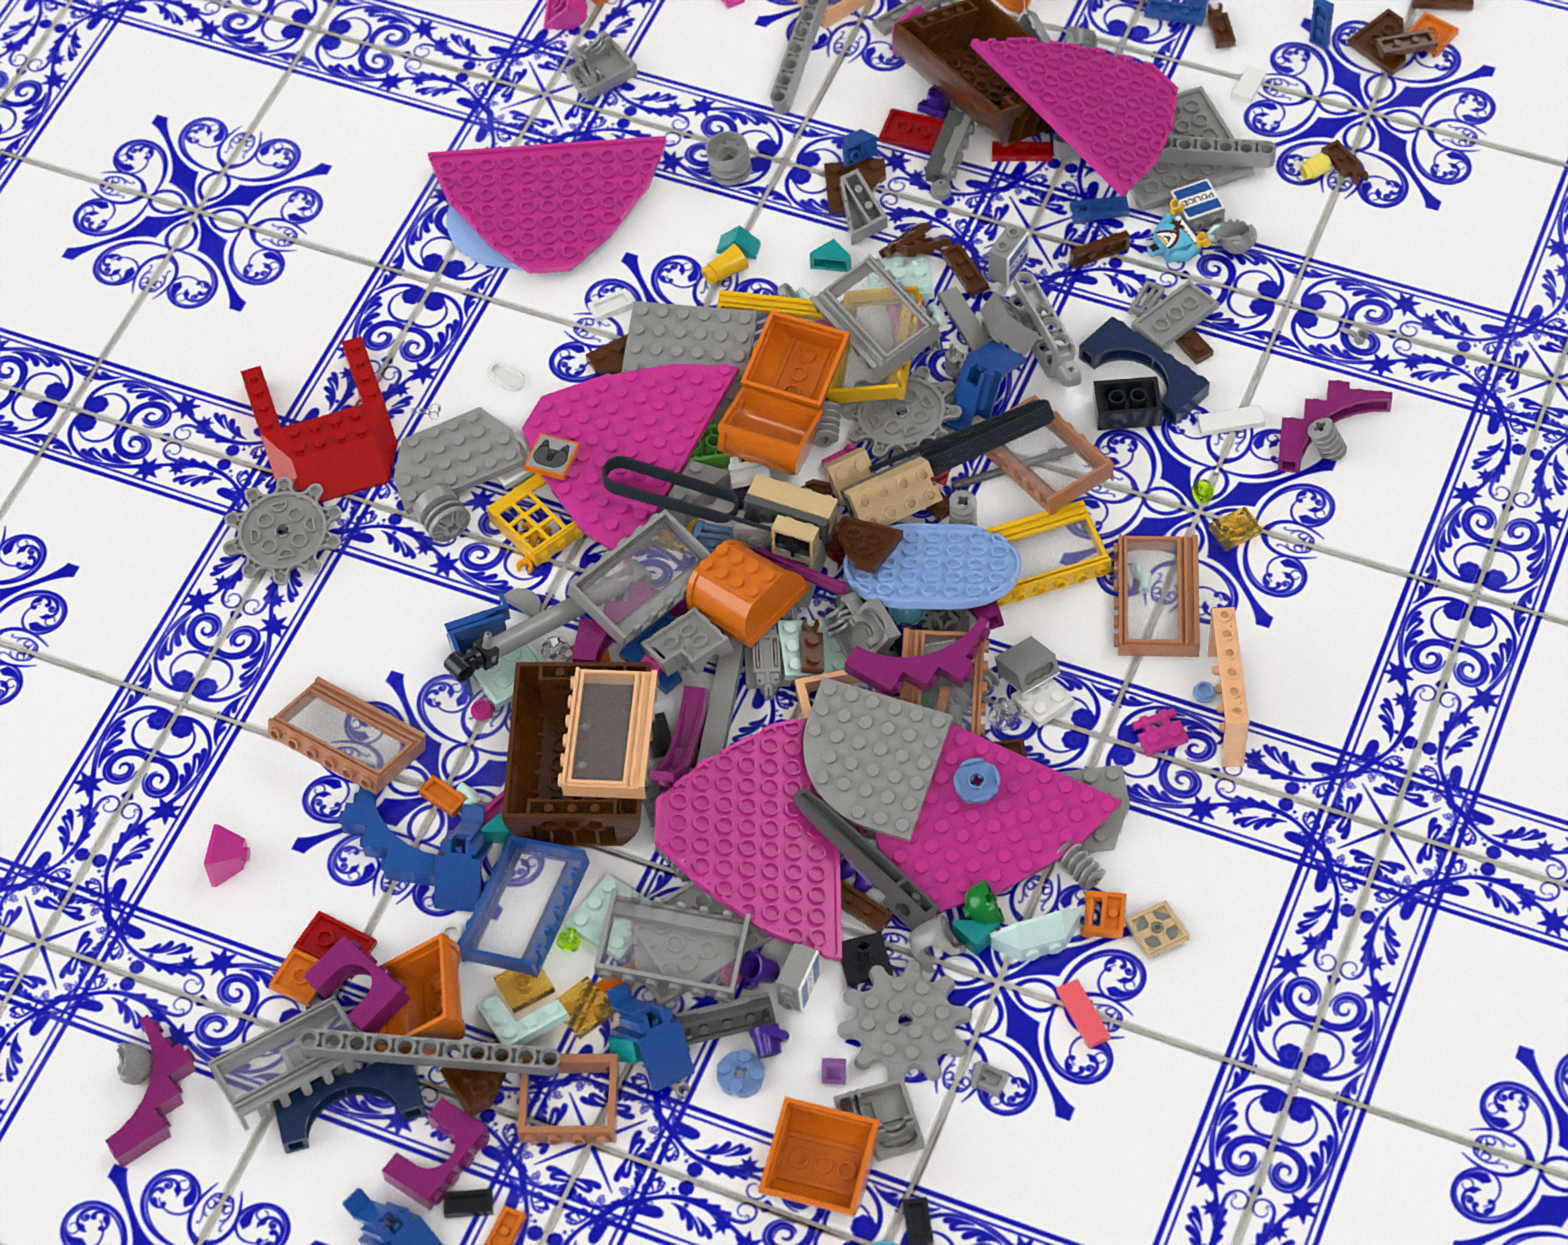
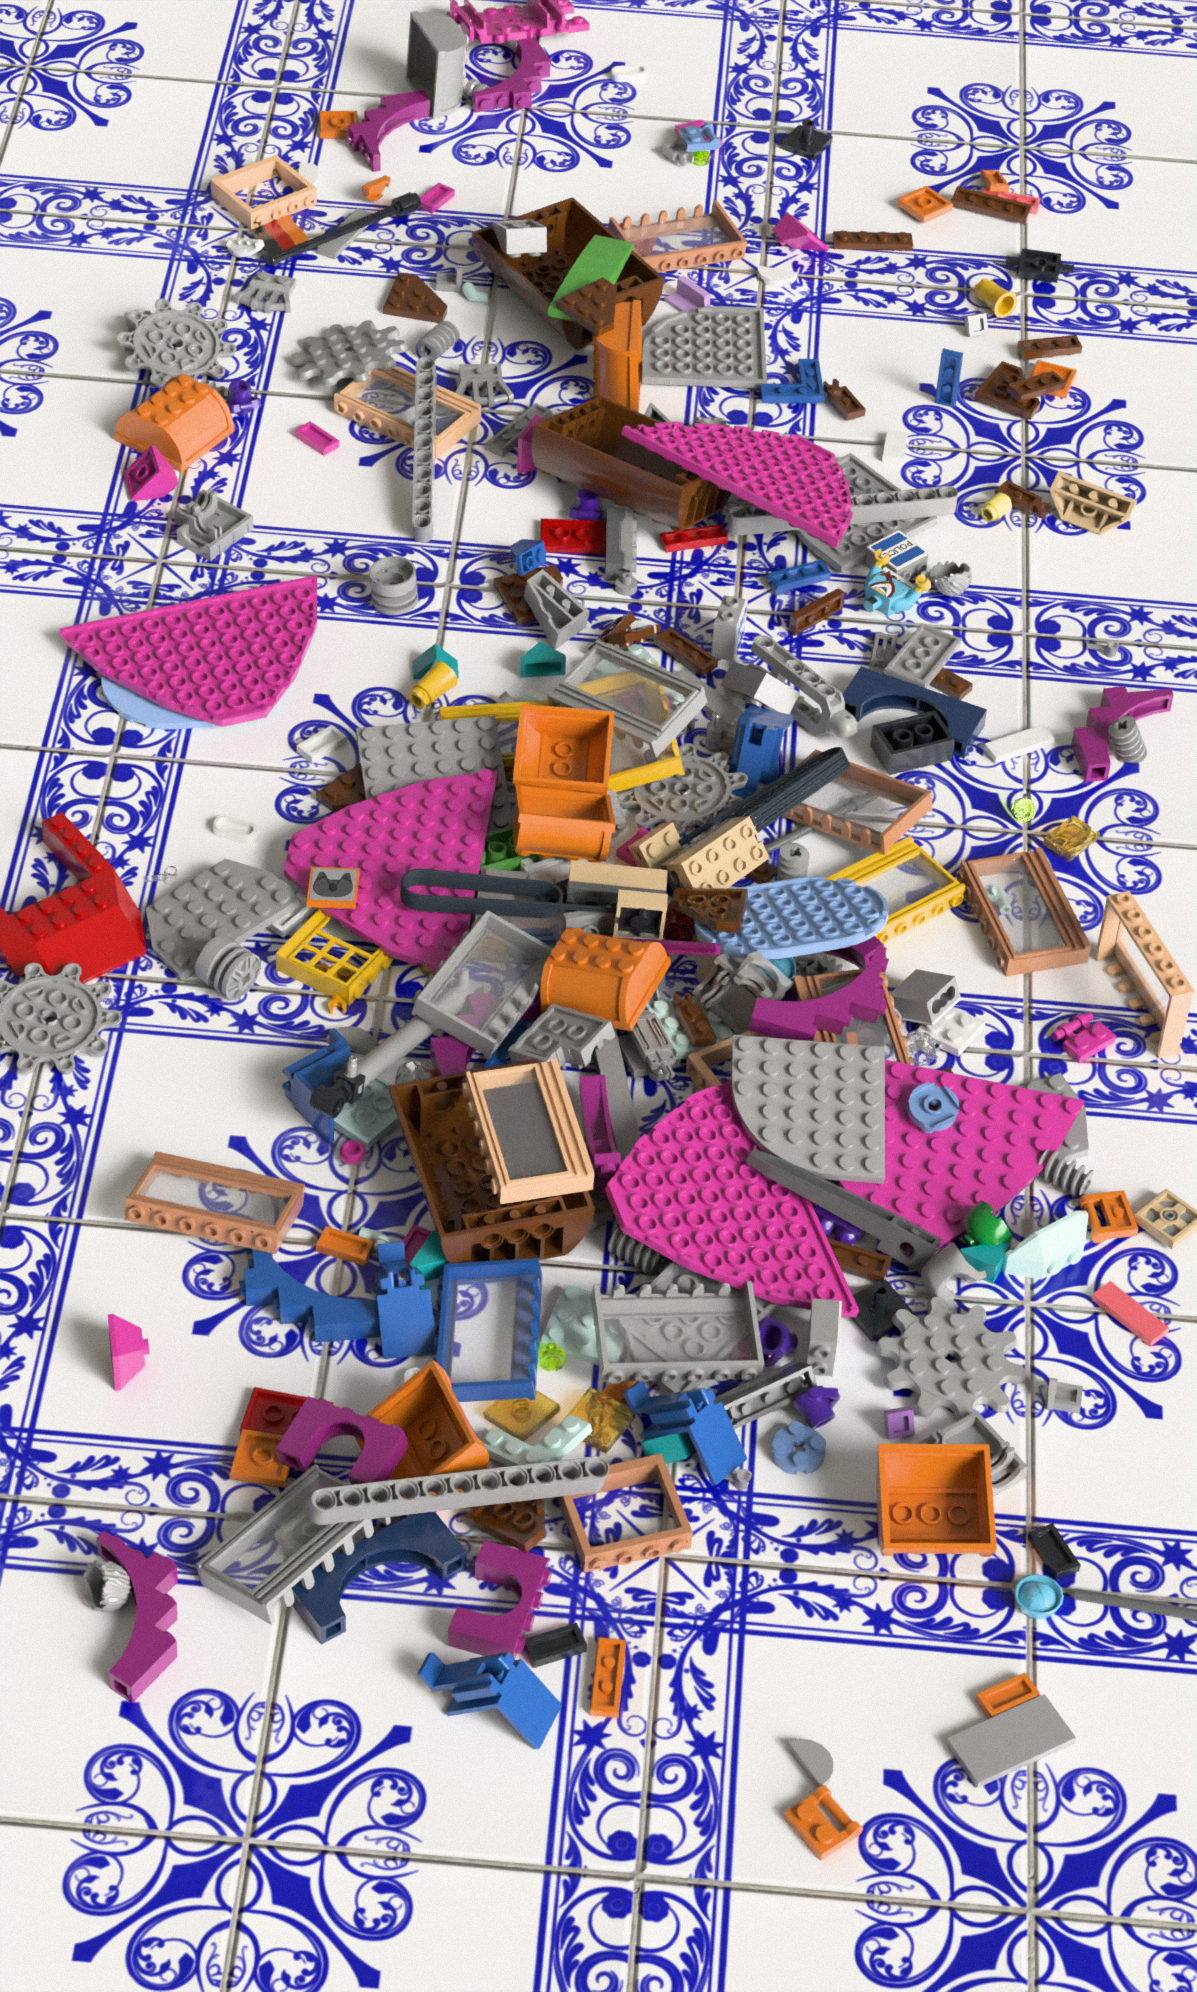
camera: 25 degrees left, 10 degrees down
(1204, 692) = (1110, 991): light blue plate -> none
(1402, 180) = (1089, 504): none -> tan wedge

